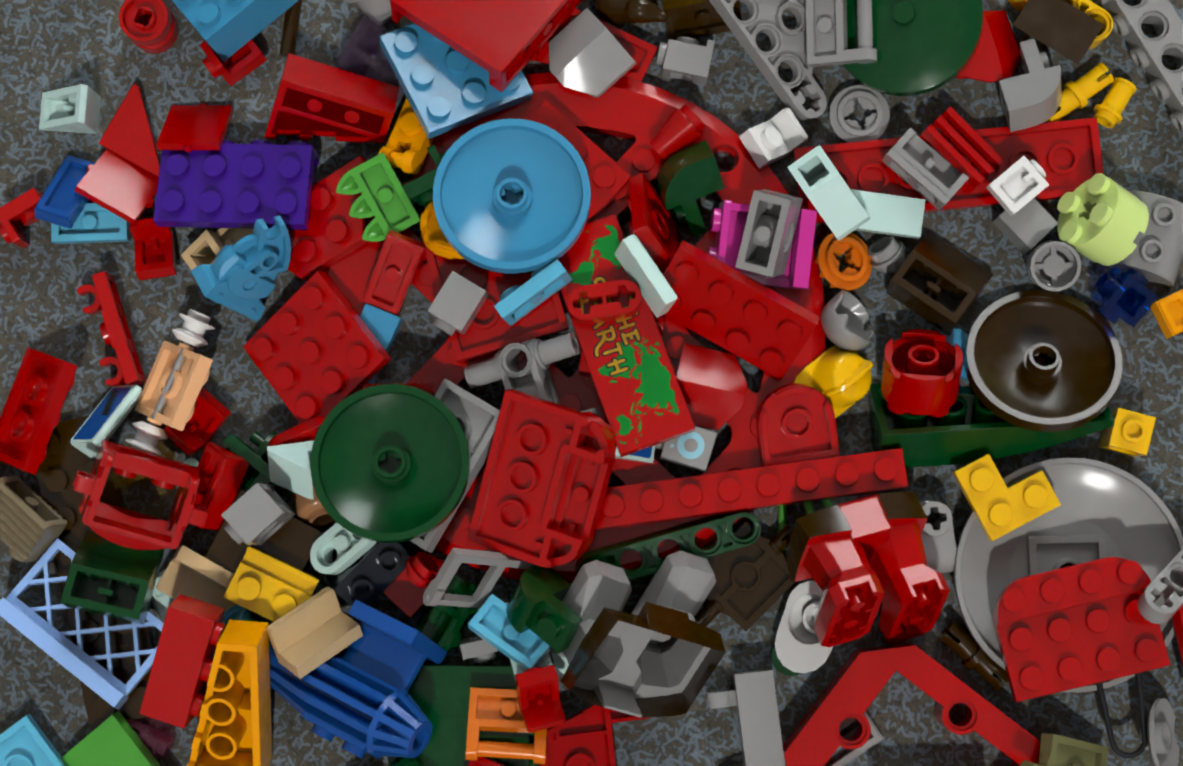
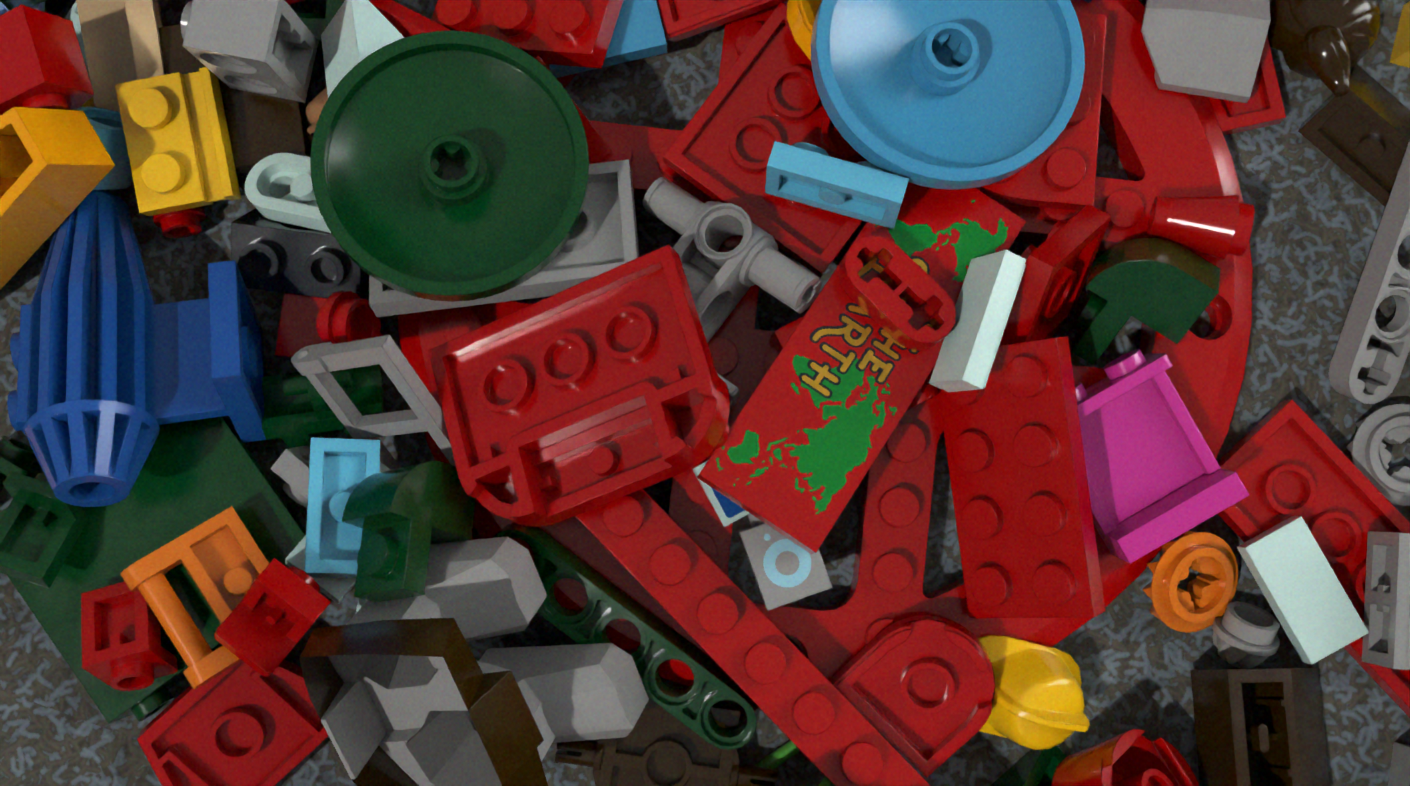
camera: 45 degrees right, 0 degrees up
(312, 633) = (149, 237): tan panel -> none
(457, 304) = (739, 94): light grey brick -> none
(686, 59) = (1296, 169): light grey brick -> none
(711, 385) = (890, 528): red slope -> none
(768, 232) = (1171, 449): light grey brick -> none
(774, 138) = (1284, 365): white bracket -> none
(829, 192) = (1287, 487): light aqua slope -> none
(844, 322) = (1112, 645): light grey hair -> none

